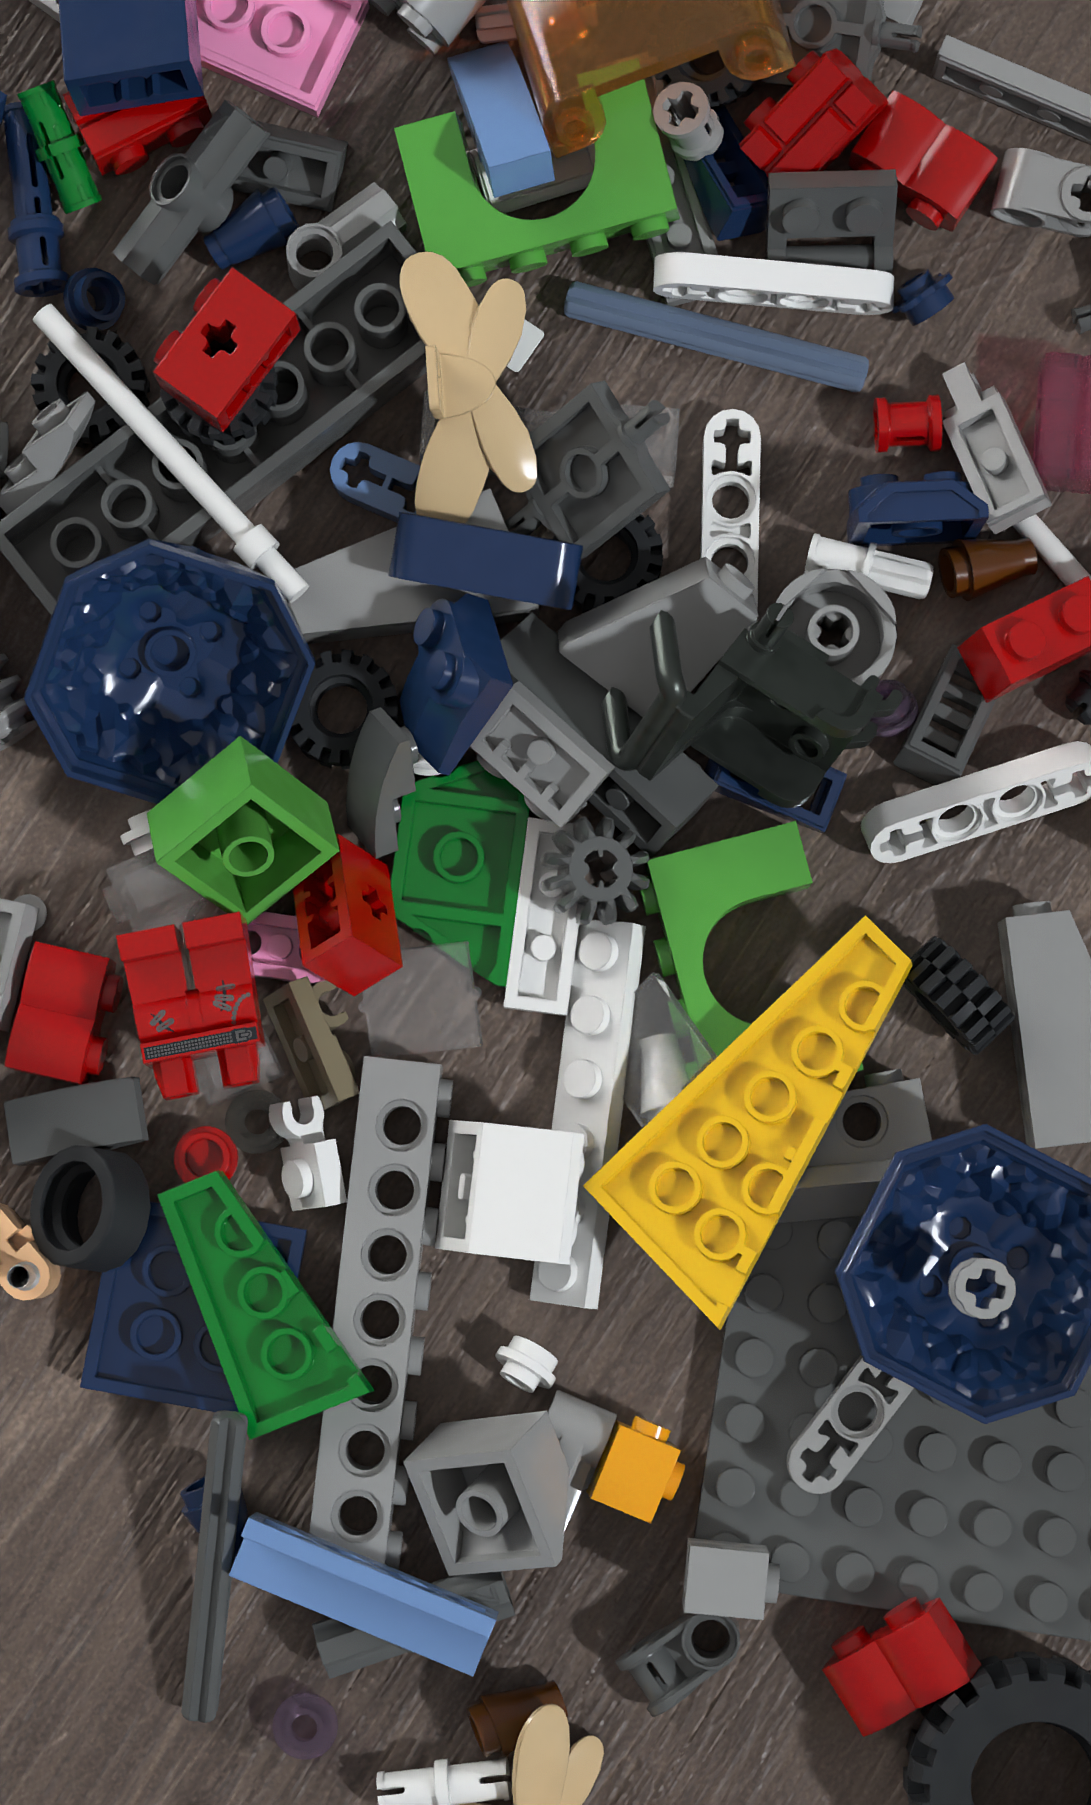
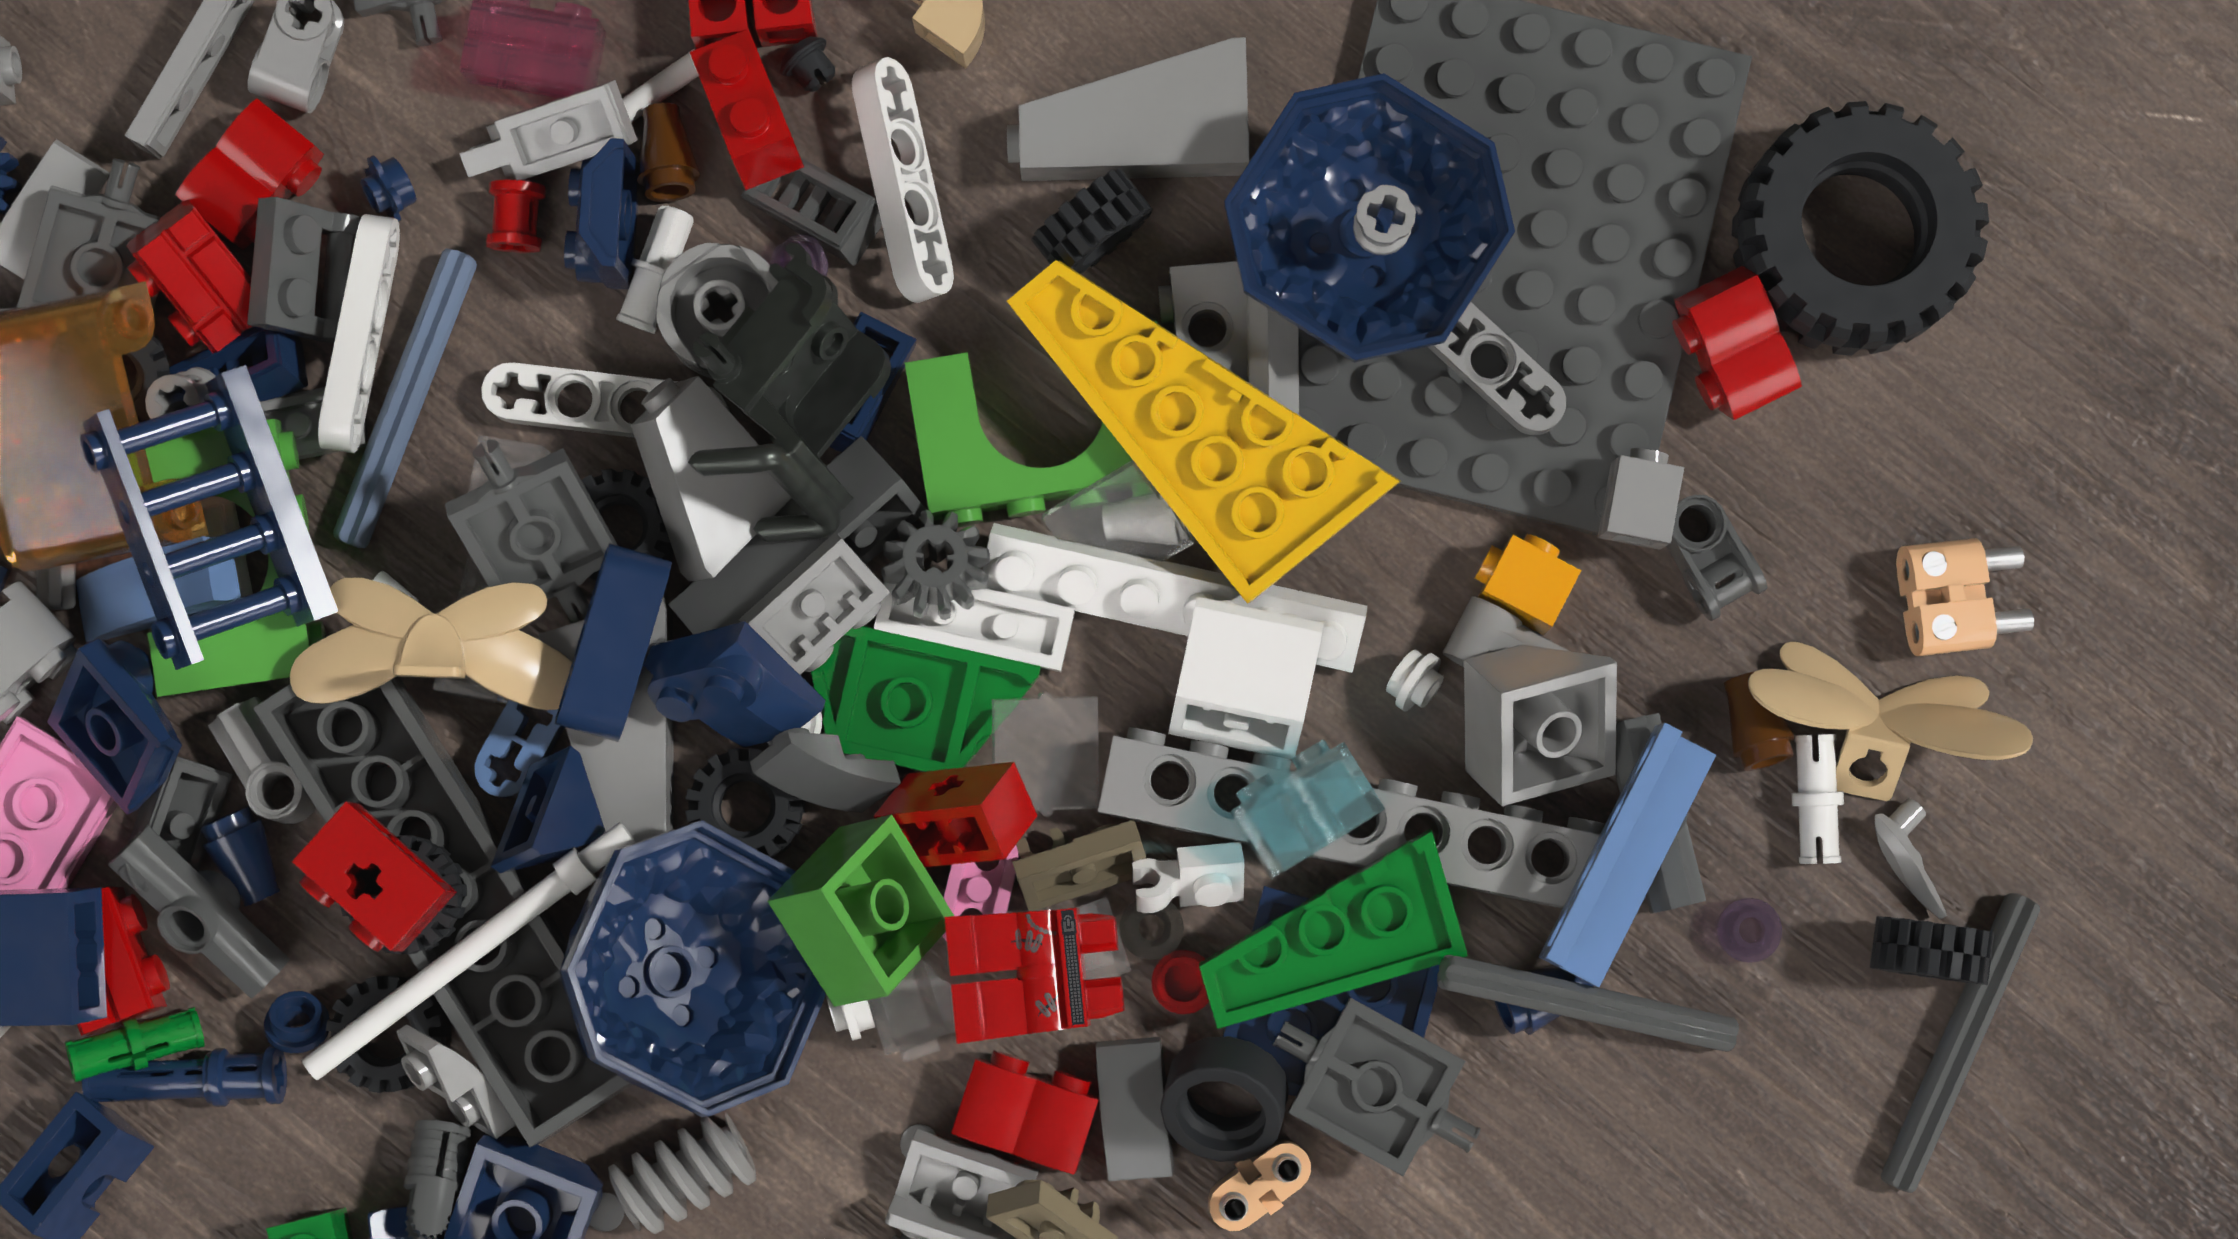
camera: 85 degrees left, 0 degrees up
(113, 1359) = (1376, 1086): none -> dark grey plate
(313, 518) = (550, 814): none -> dark blue slope
(367, 92) = (116, 722): none -> dark blue slope
(381, 1263) = (1307, 808): none -> clear light blue brick
(621, 190) = (252, 469): none -> dark blue fence

